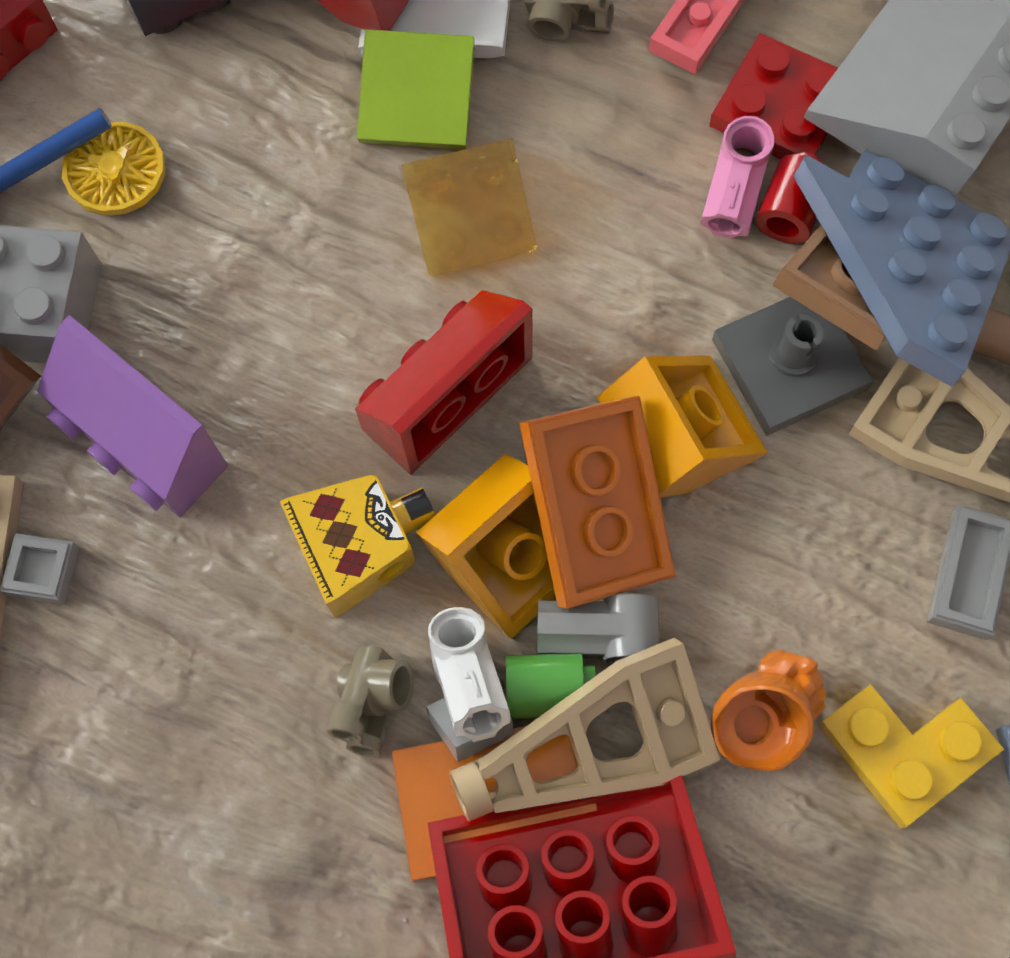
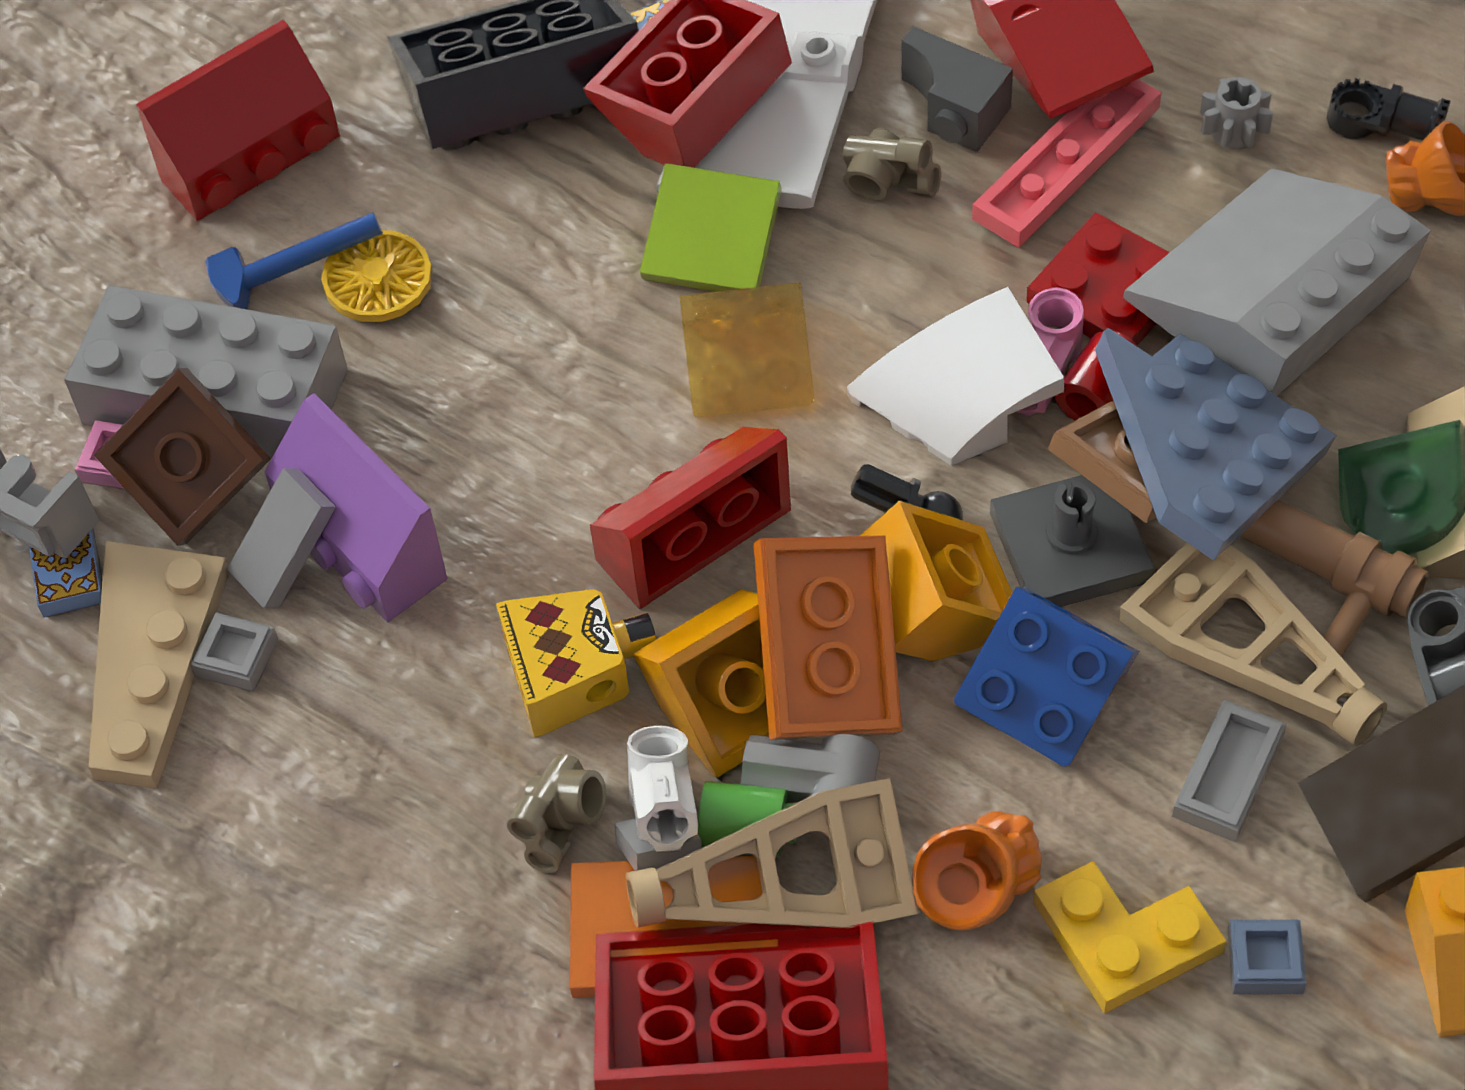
camera: 10 degrees right, 15 degrees down
(64, 454) = (281, 538): none -> light grey tile
(636, 338) = (885, 490): none -> black axle
(673, 213) = (962, 378): none -> white slope
(799, 503) = (1044, 675): none -> blue bracket

